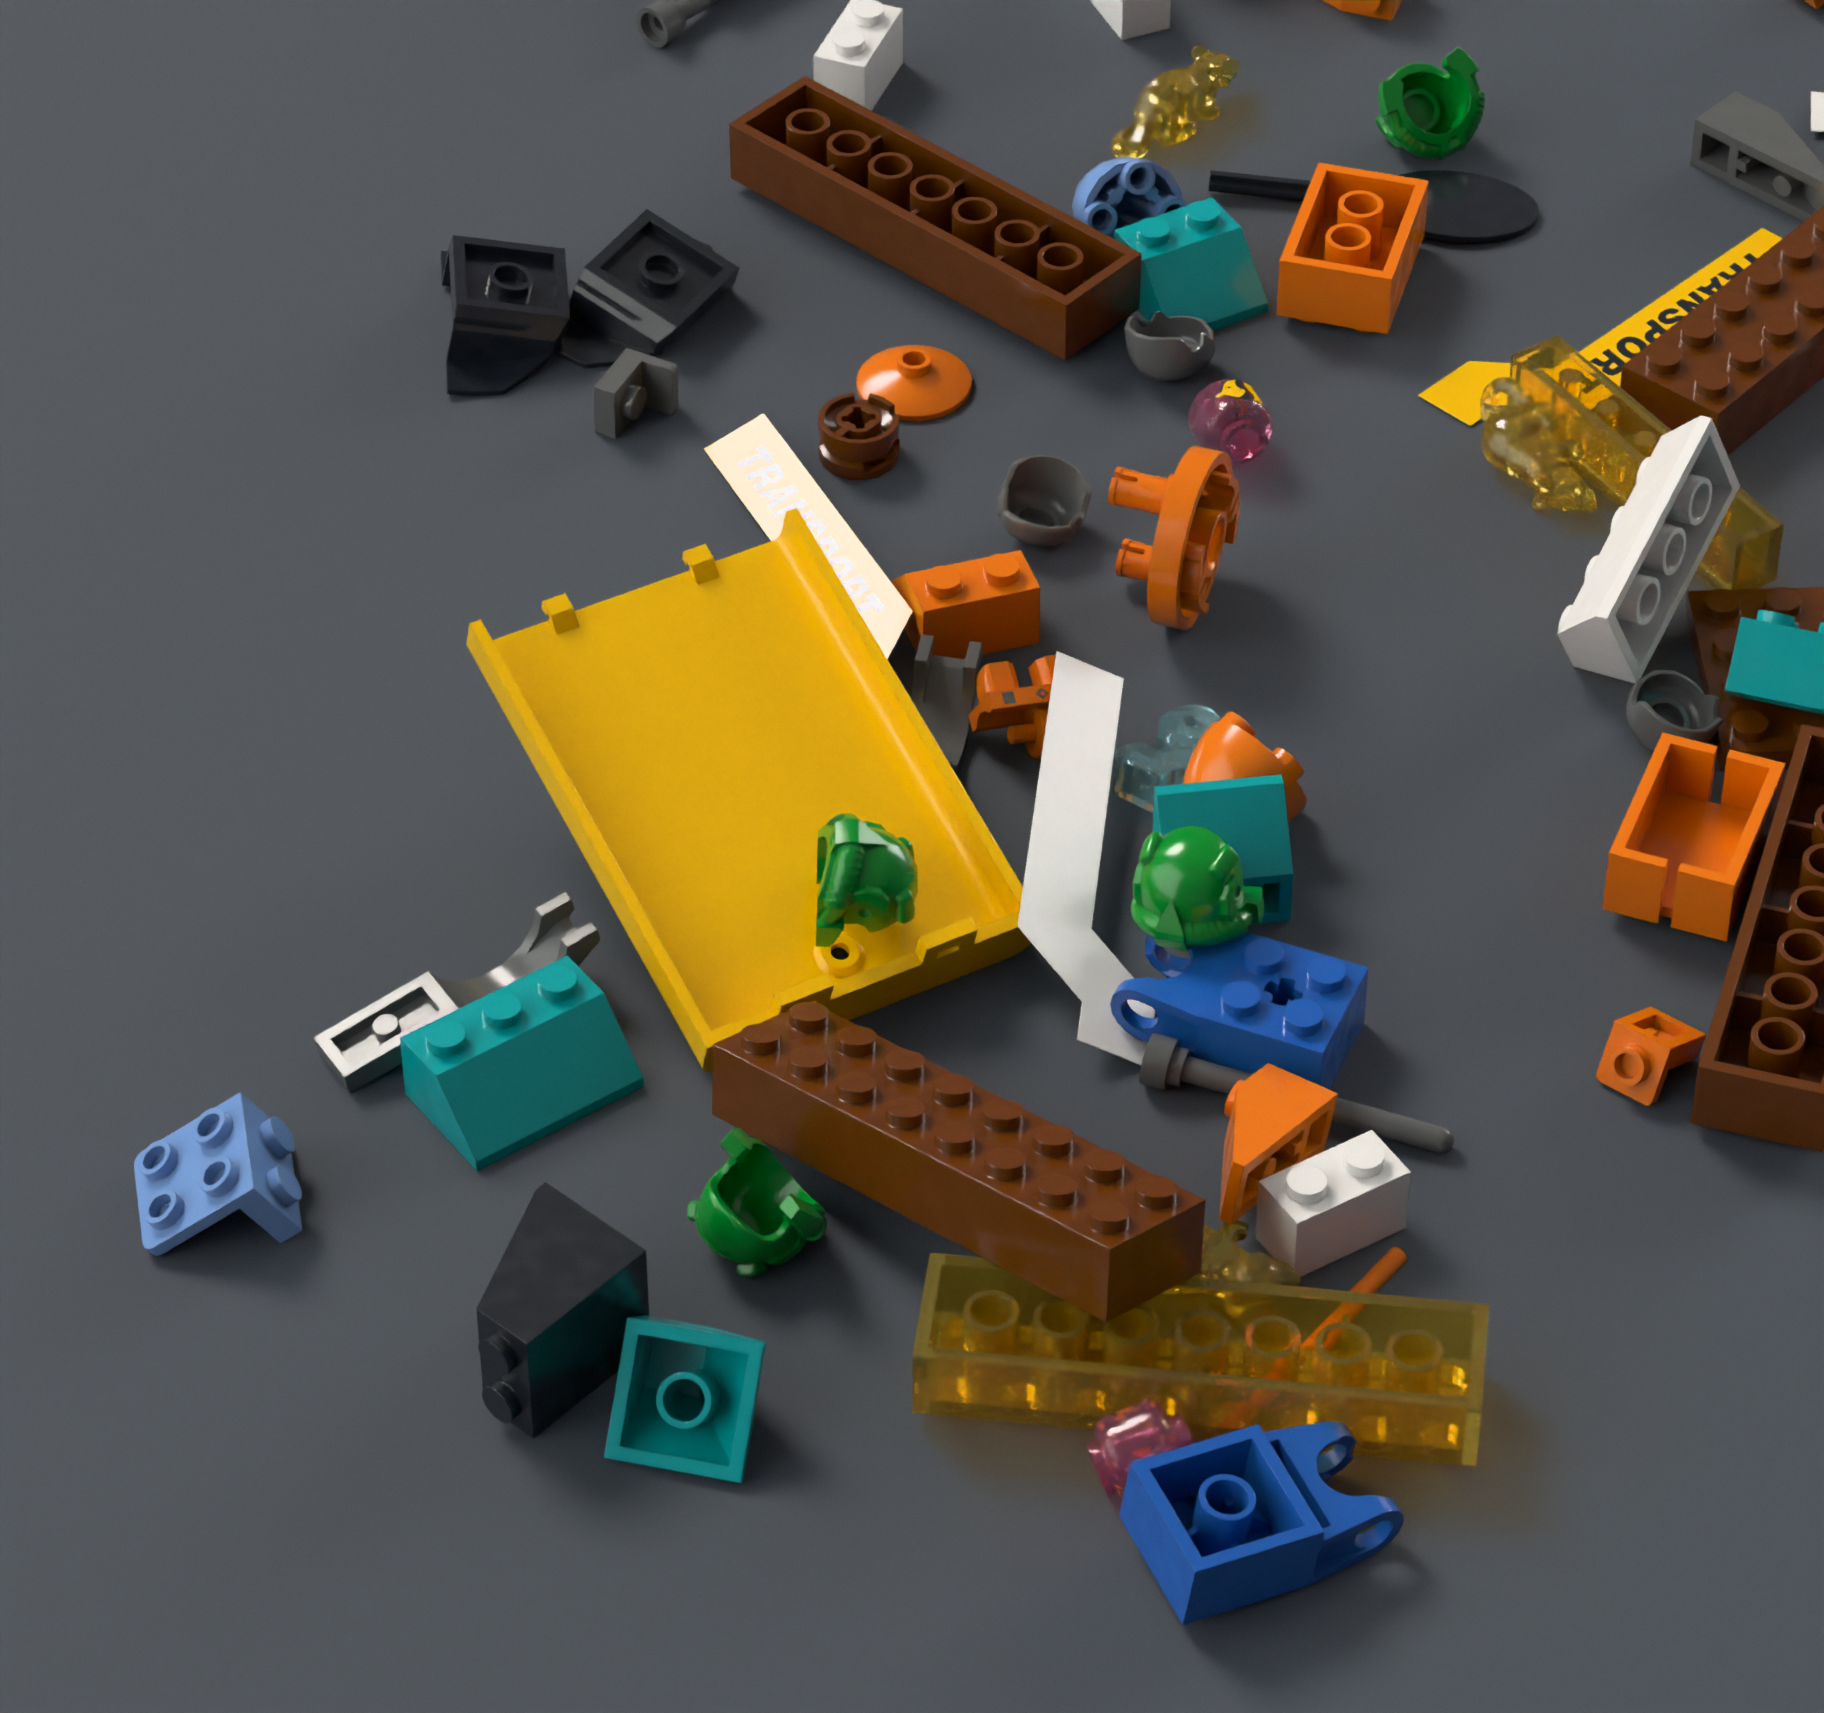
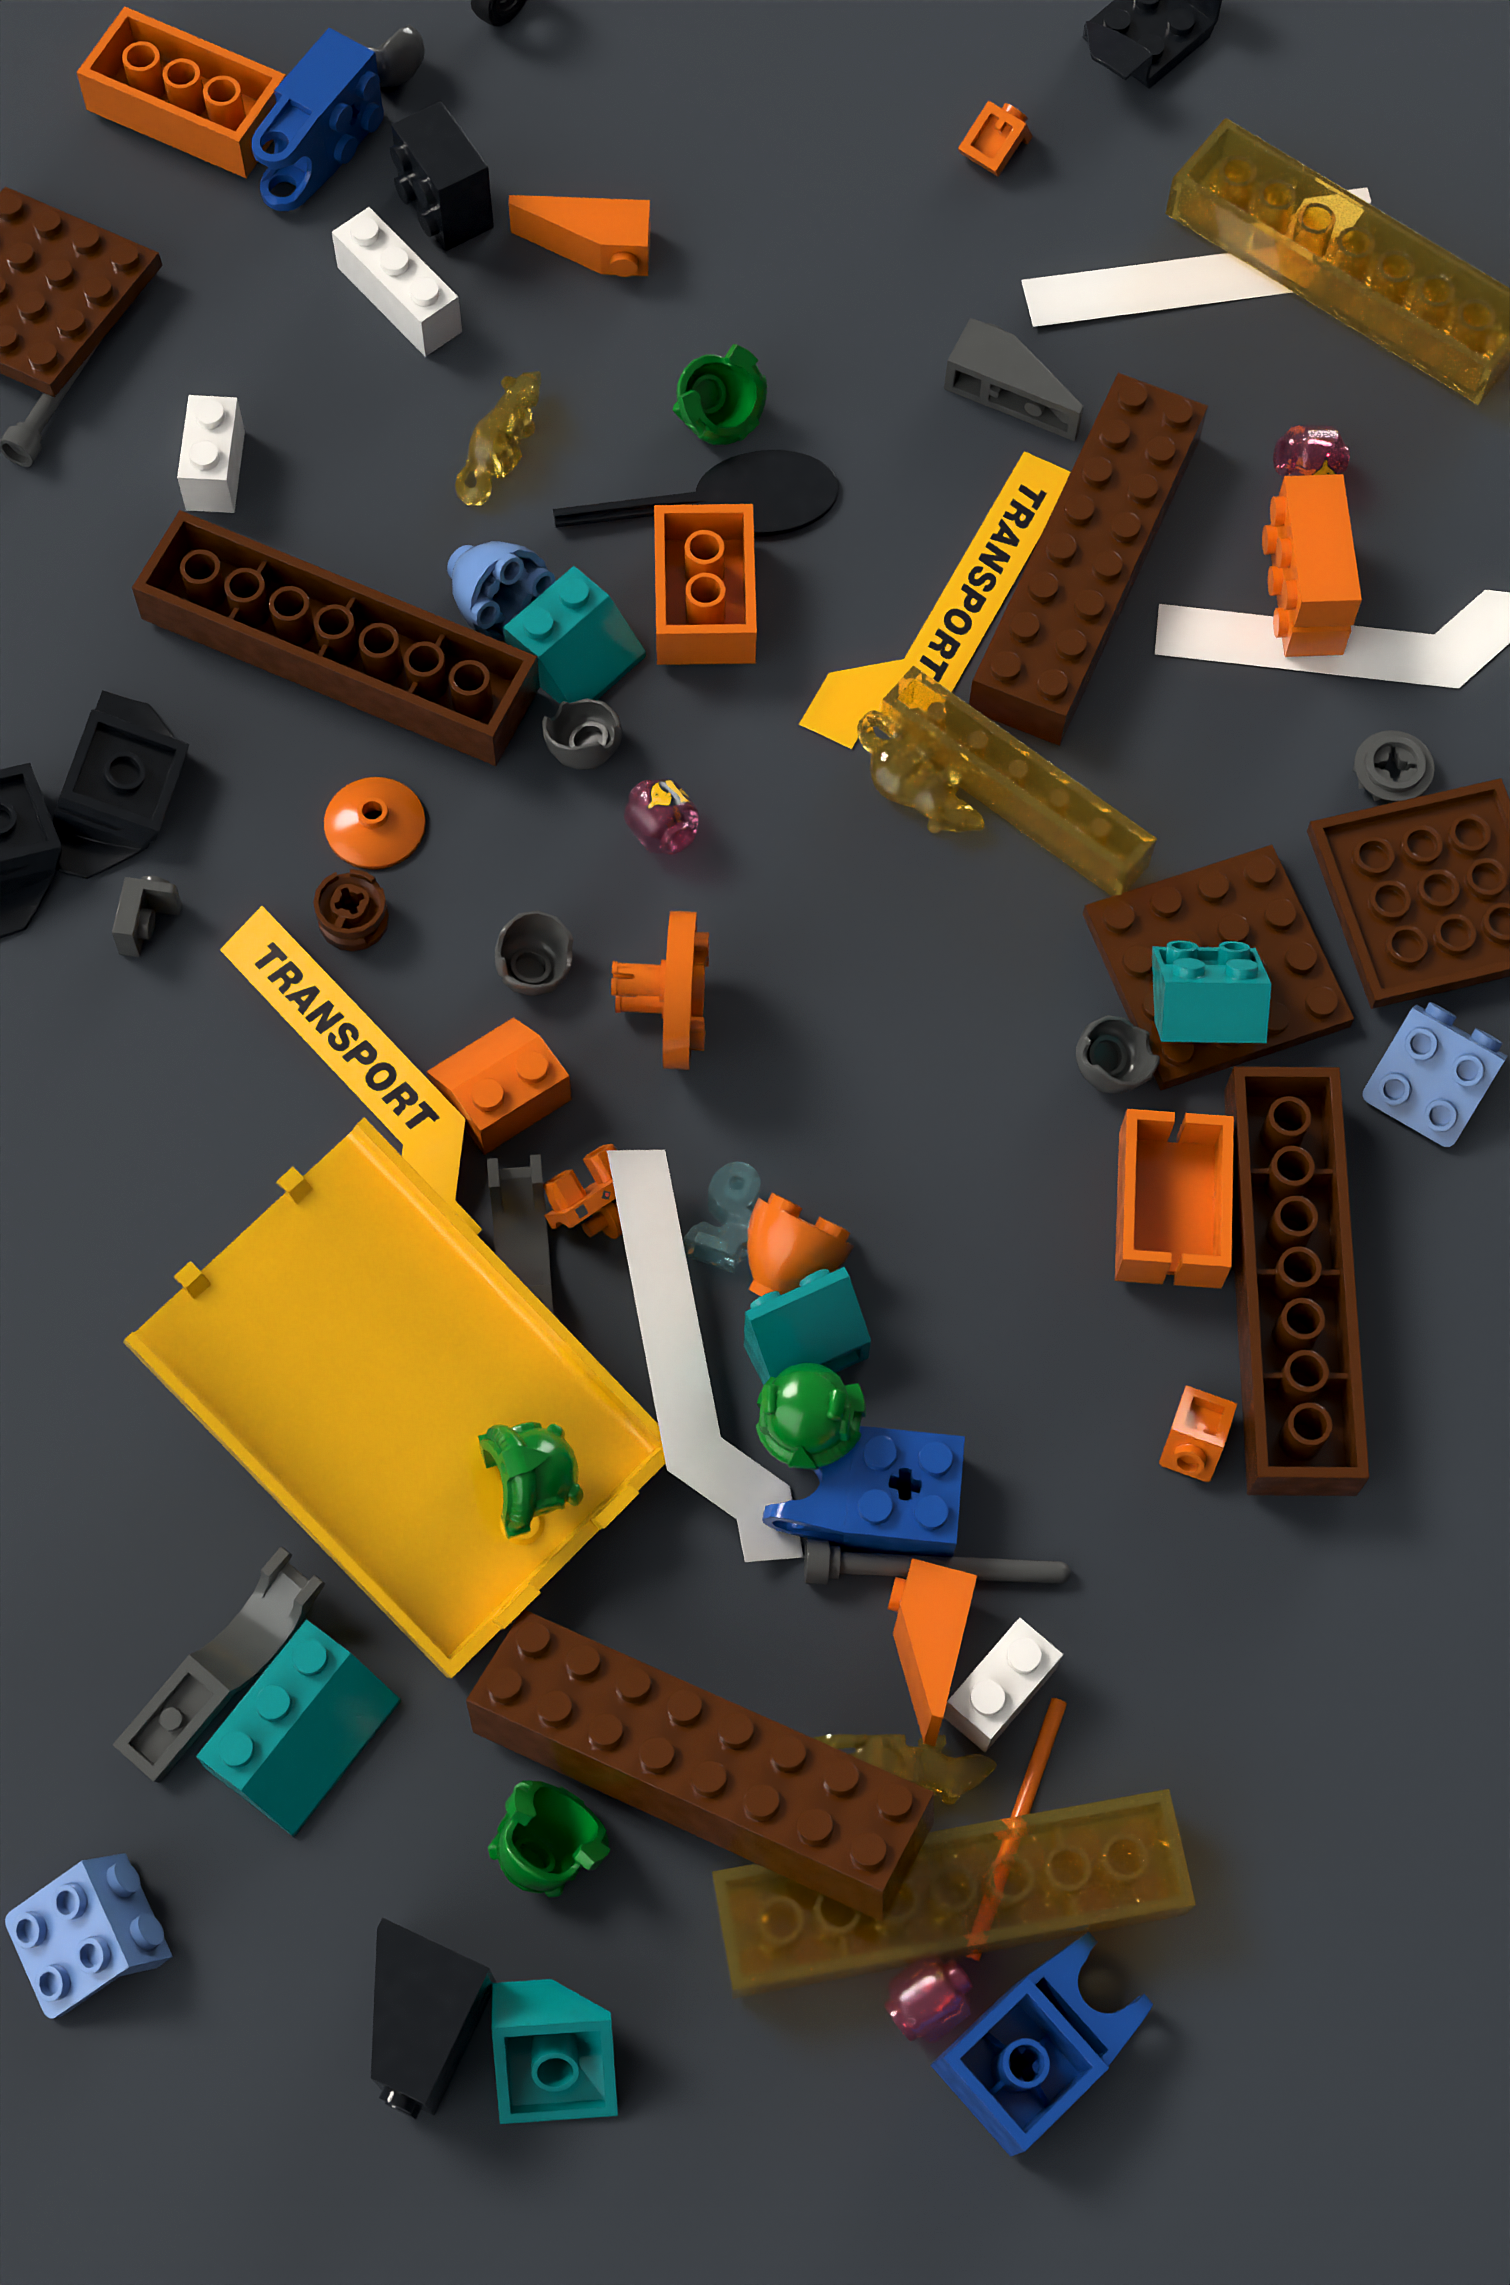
camera: 20 degrees left, 25 degrees up
(1650, 553) = (1058, 904): white slope -> none

